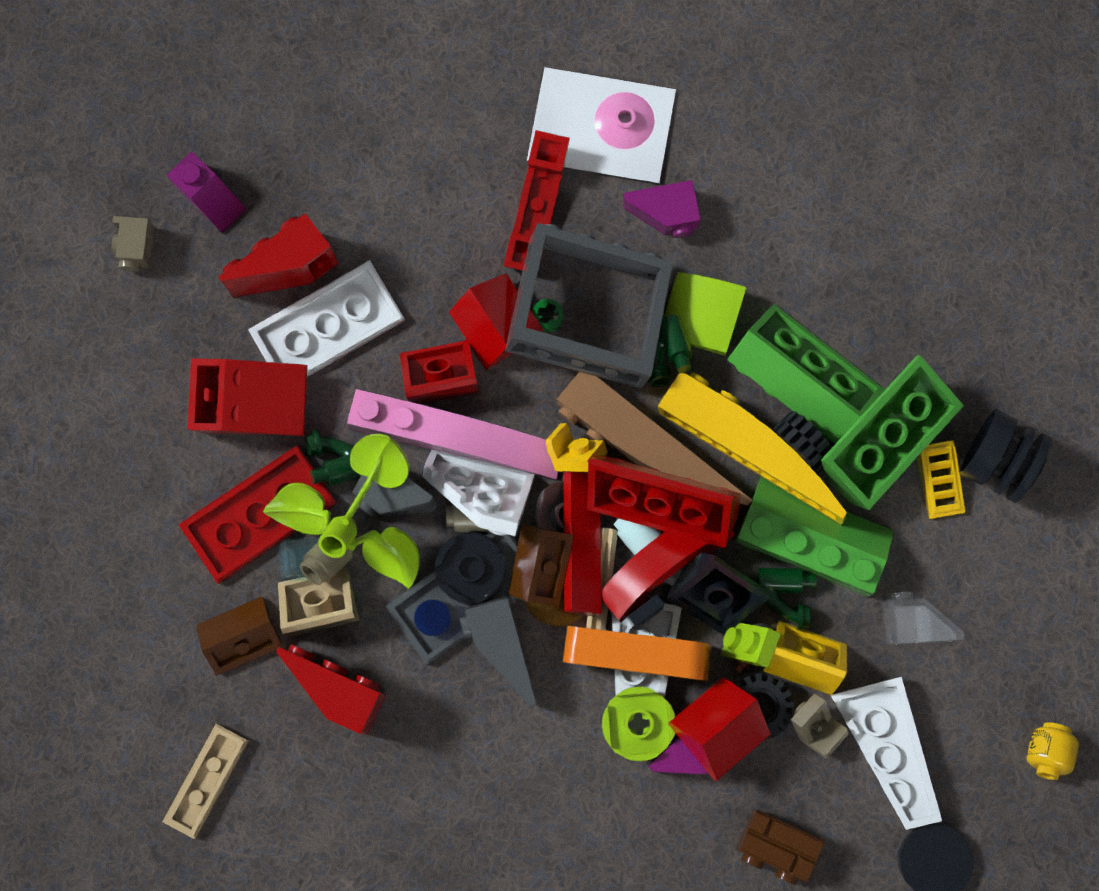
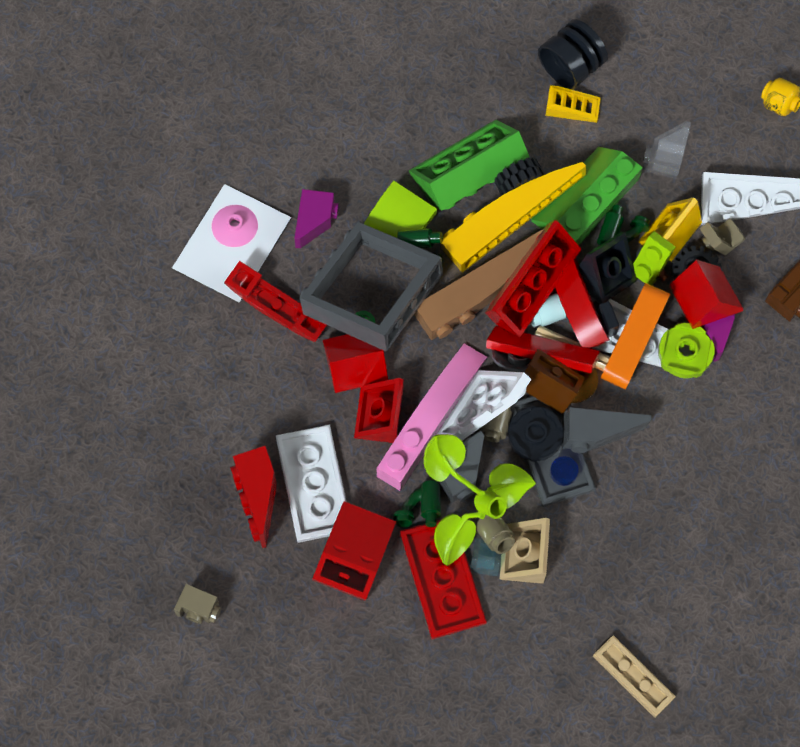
camera: 75 degrees left, 10 degrees down
(206, 192) = (178, 538): magenta slope -> none
(238, 636) = (531, 617): reddish brown panel -> none
(337, 696) = (602, 553): red slope -> none
(572, 454) = (476, 333): yellow bracket -> none
(890, 434) = (536, 119): bright green slope -> none

